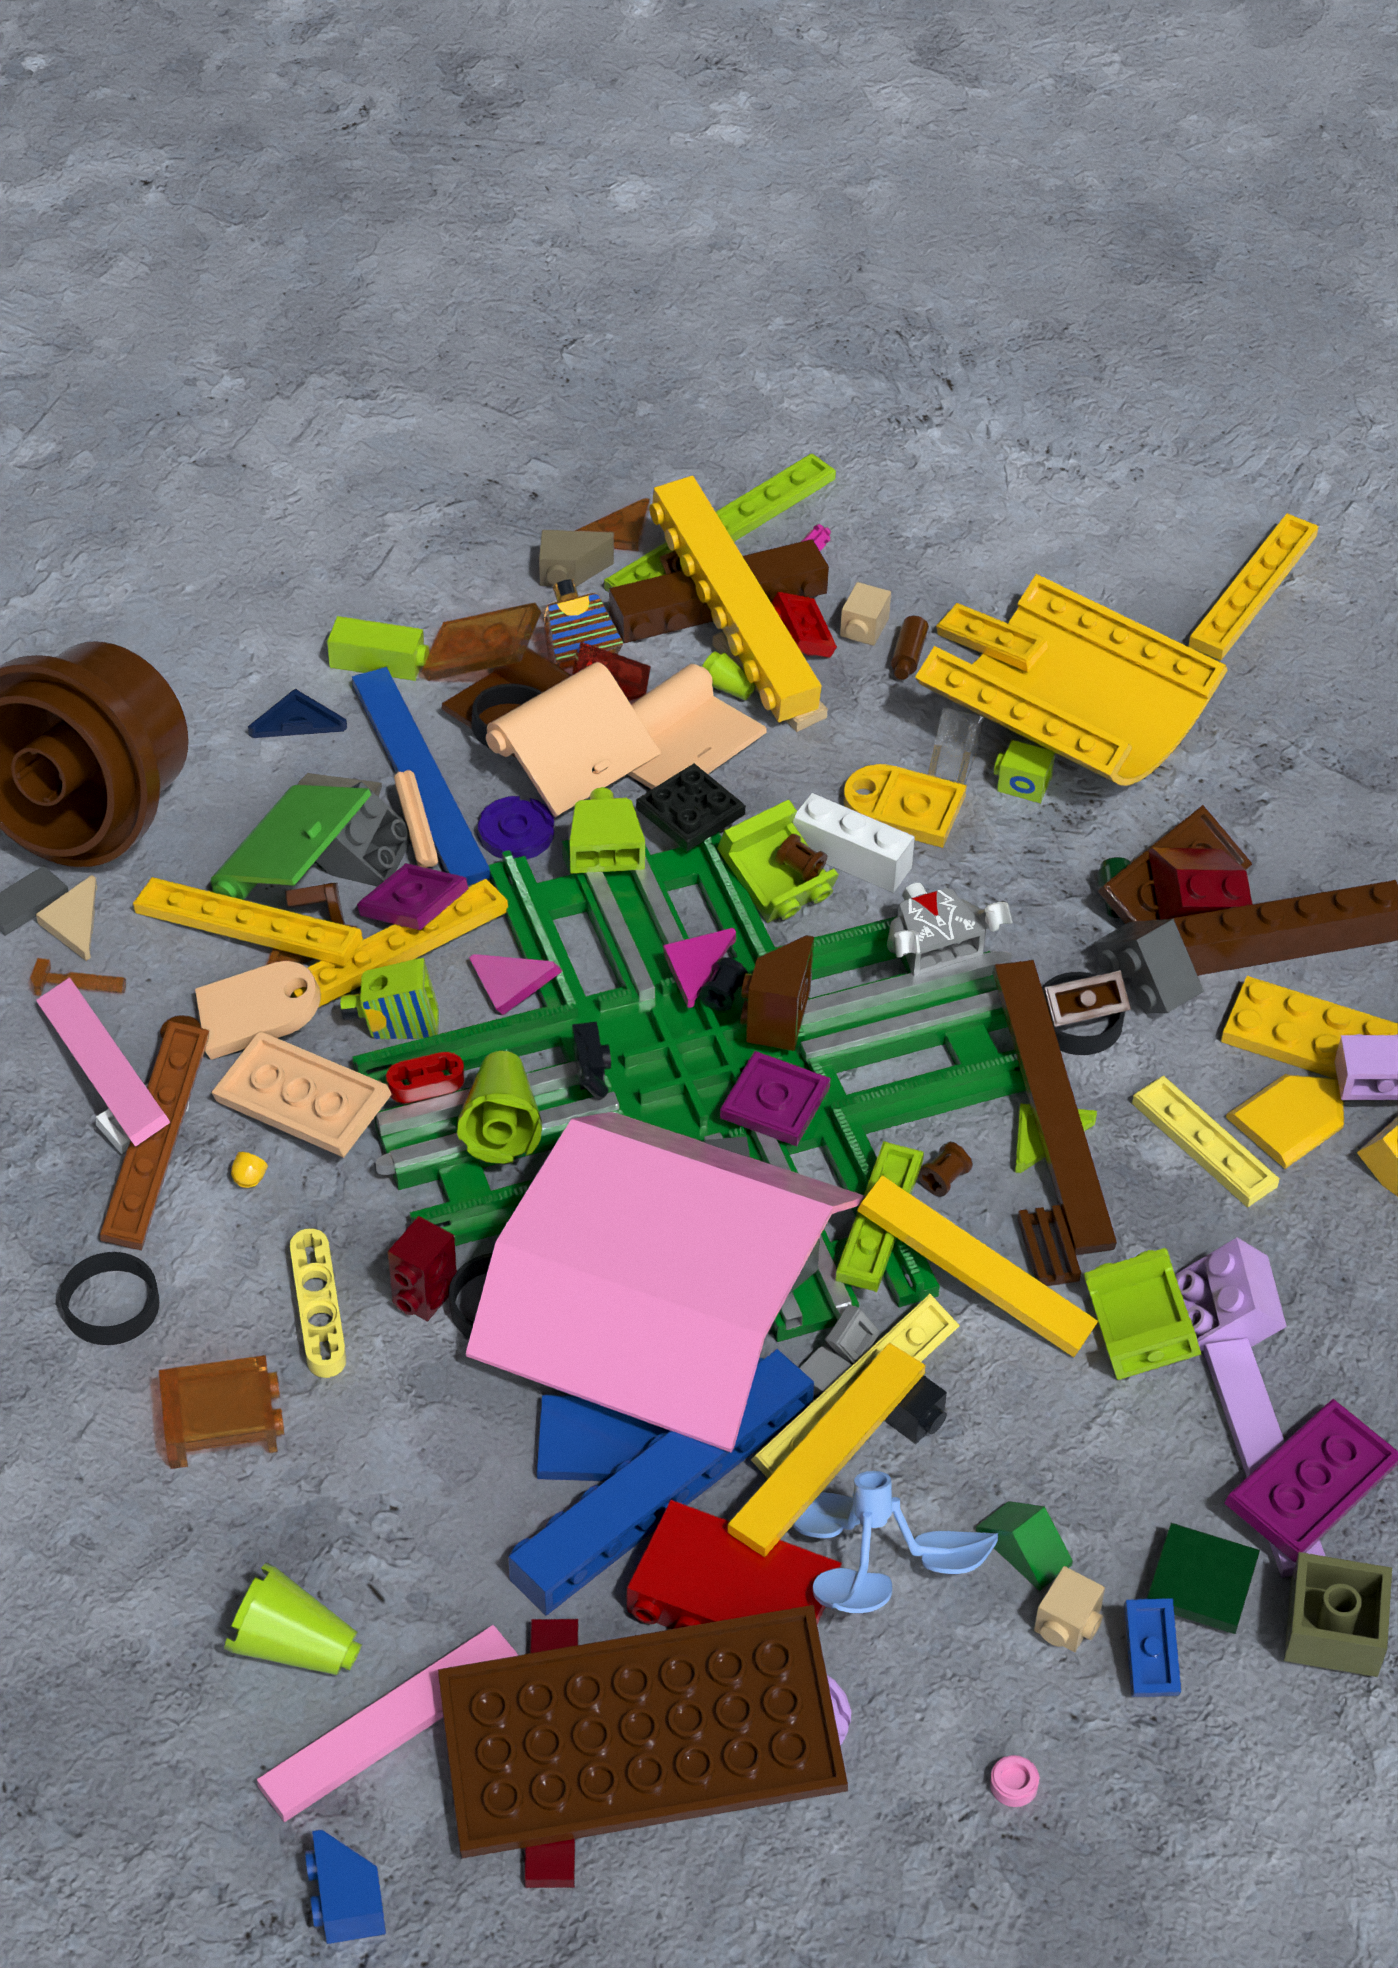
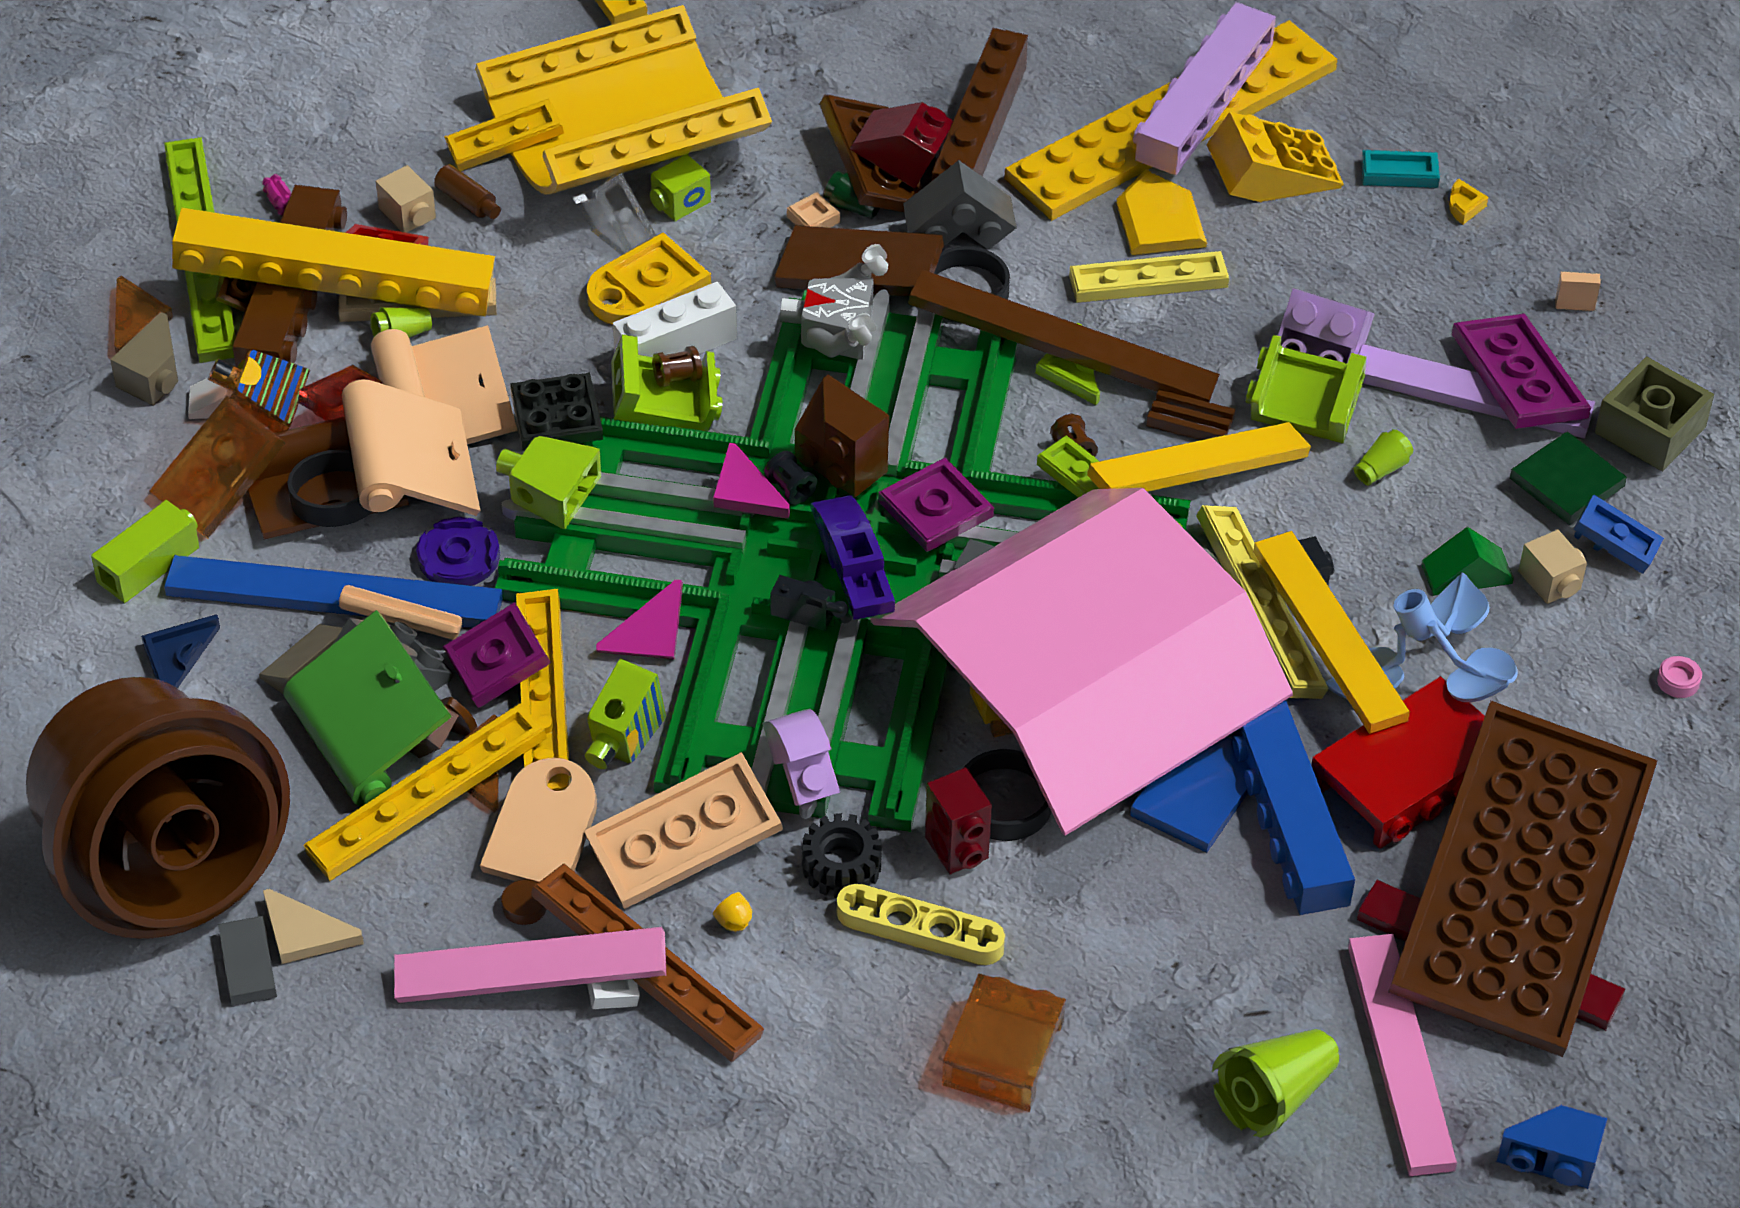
camera: 60 degrees left, 0 degrees up
(41, 975) = (362, 985): clear orange piece -> none
(103, 1263) = (810, 1039): black tyre -> none
(348, 1195) = (841, 835): none -> black tyre
(411, 1117) = (803, 749): none -> lavender brick
(425, 1077) = (730, 726): red beam -> none
(500, 1111) = (828, 680): lime cone -> none
(655, 1055) = (855, 555): none -> dark purple slope
(1042, 925) = (833, 251): none -> reddish brown tile
(1077, 874) = (813, 212): none -> light nougat tile
(1086, 999) = (969, 260): slope -> none
(1110, 1413) = (1385, 456): none -> lime cone

